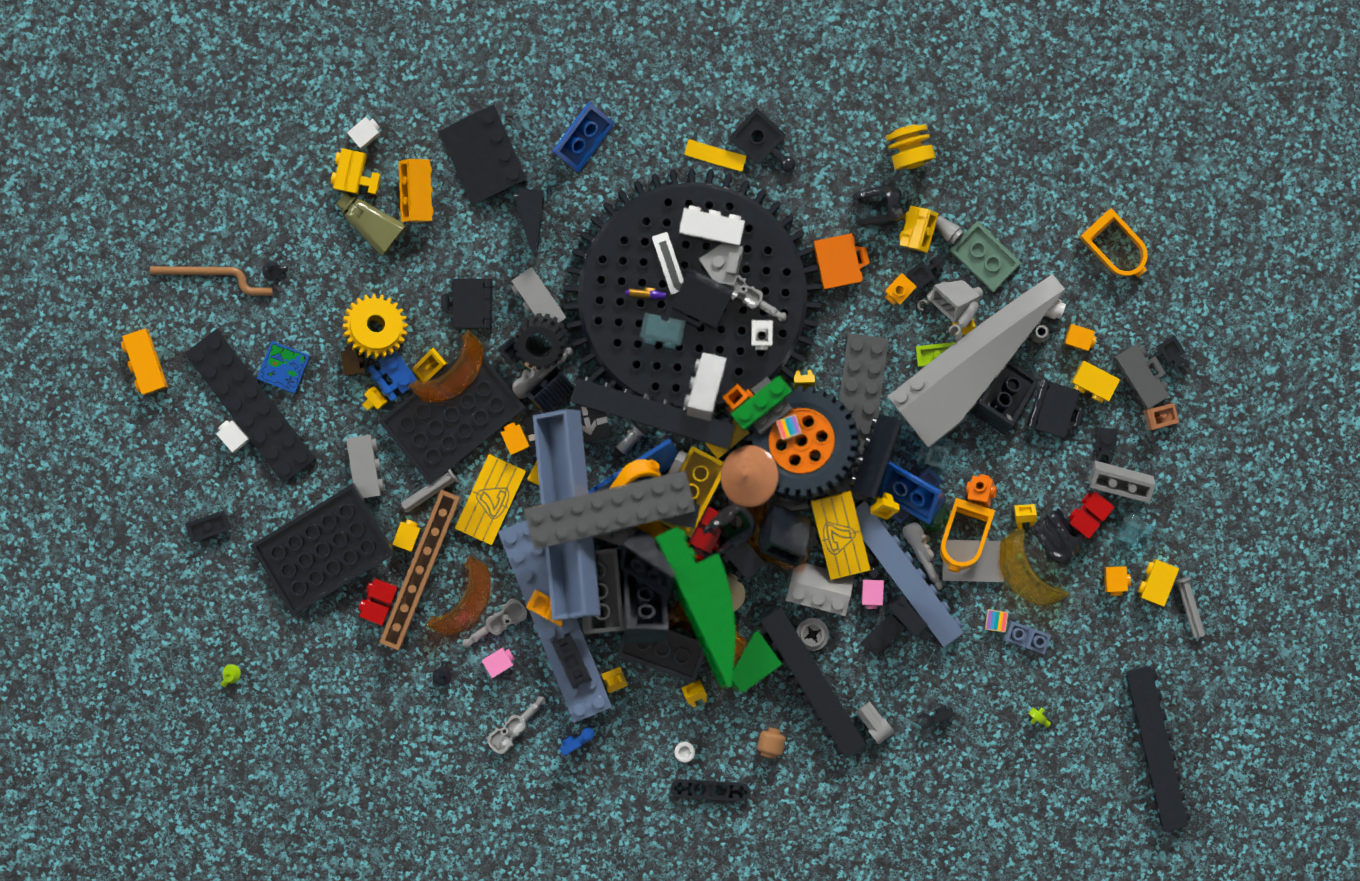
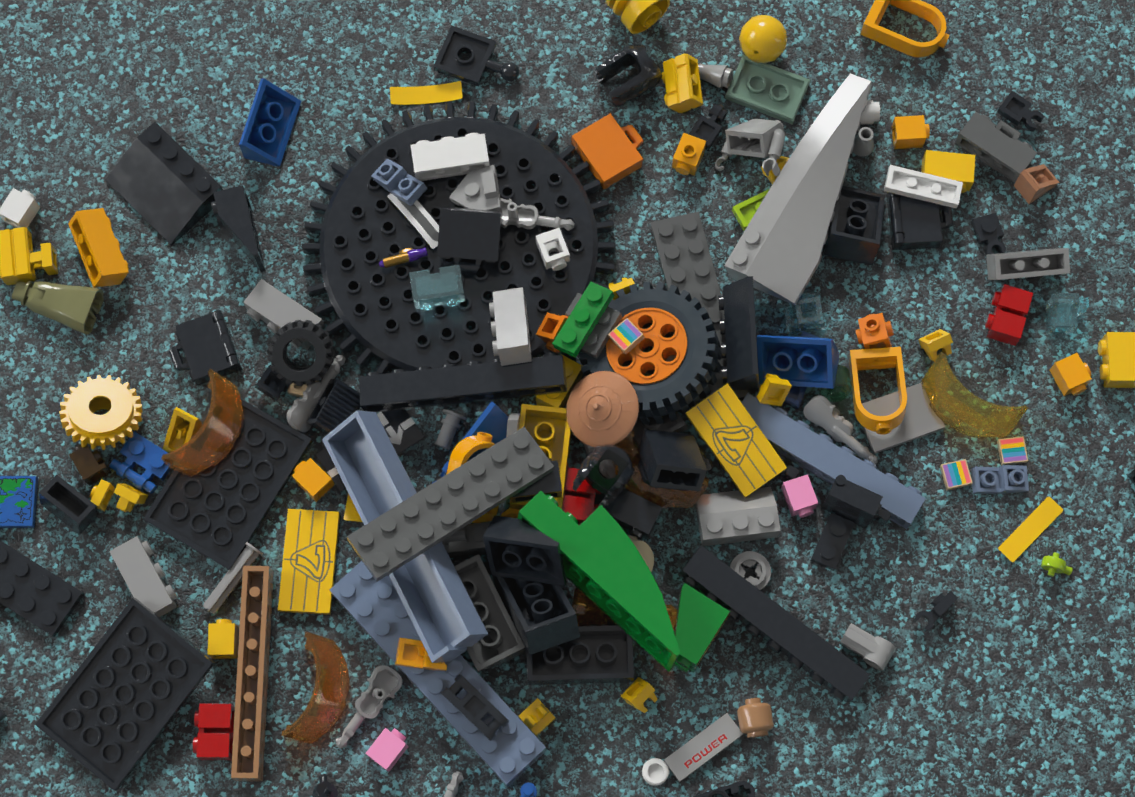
camera: 15 degrees left, 15 degrees down
(327, 389) = (68, 504): none -> black piece
(353, 389) = (102, 494): none -> yellow plate
(665, 230) = (398, 182): none -> sand blue slope
(726, 748) = (703, 747): none -> light grey tile
(996, 217) = (763, 39): none -> yellow helmet
(1033, 682) = (1030, 529): none -> yellow sticker
(1046, 619) = (1012, 451): none -> tile
(1057, 537) = (985, 350): black piece -> none
(1067, 391) = (923, 186): none -> white plate

